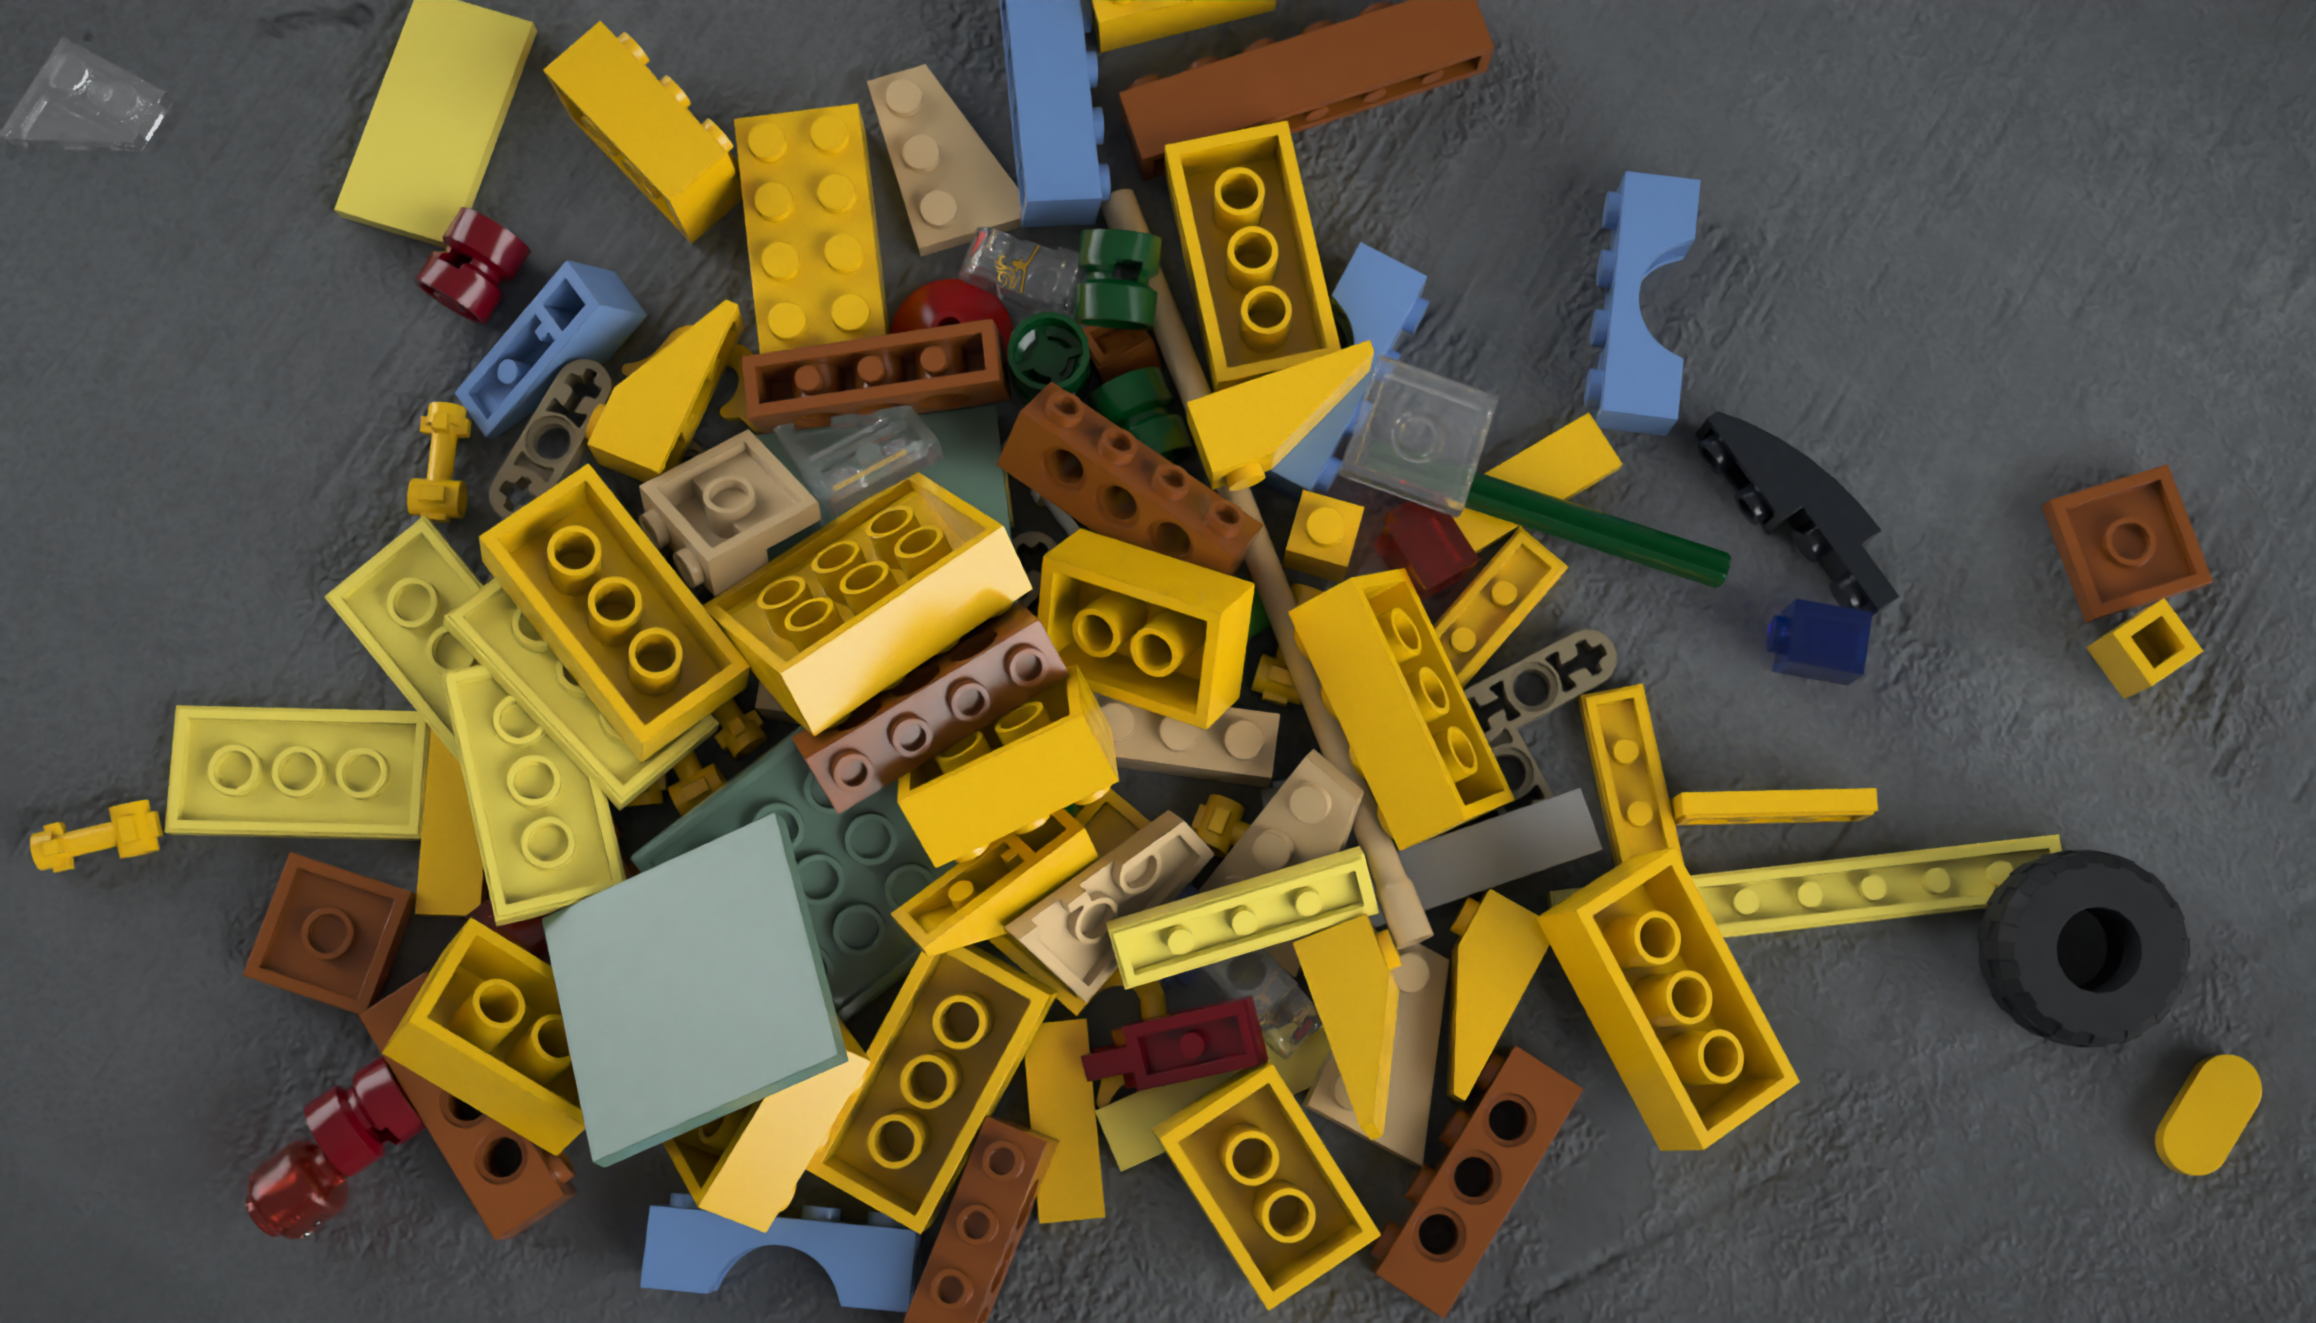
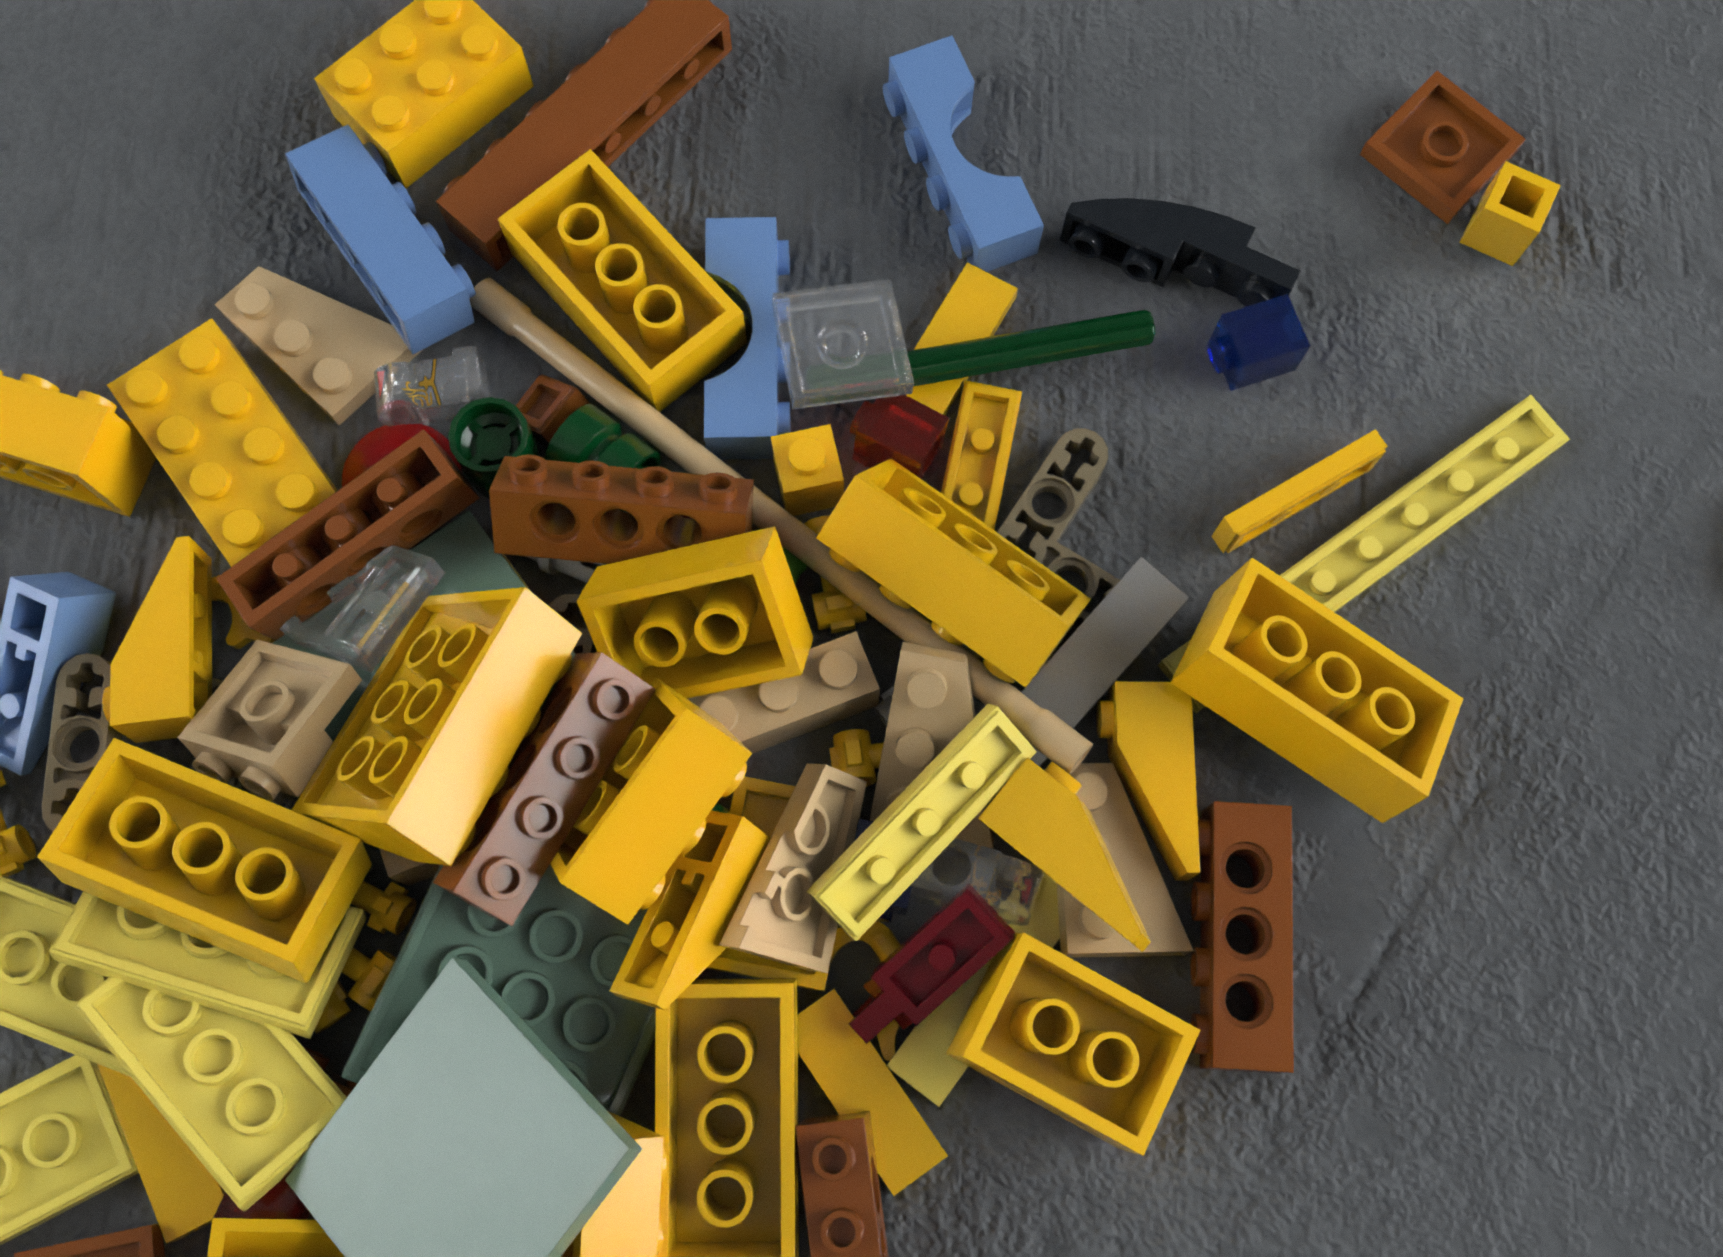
camera: 30 degrees left, 5 degrees down
(1117, 302) = (513, 339): dark green wheel -> none
(1263, 419) = (702, 396): yellow slope -> none
(1628, 772) = (1166, 530): yellow tile -> none
(2143, 959) = (1650, 436): black tyre -> none

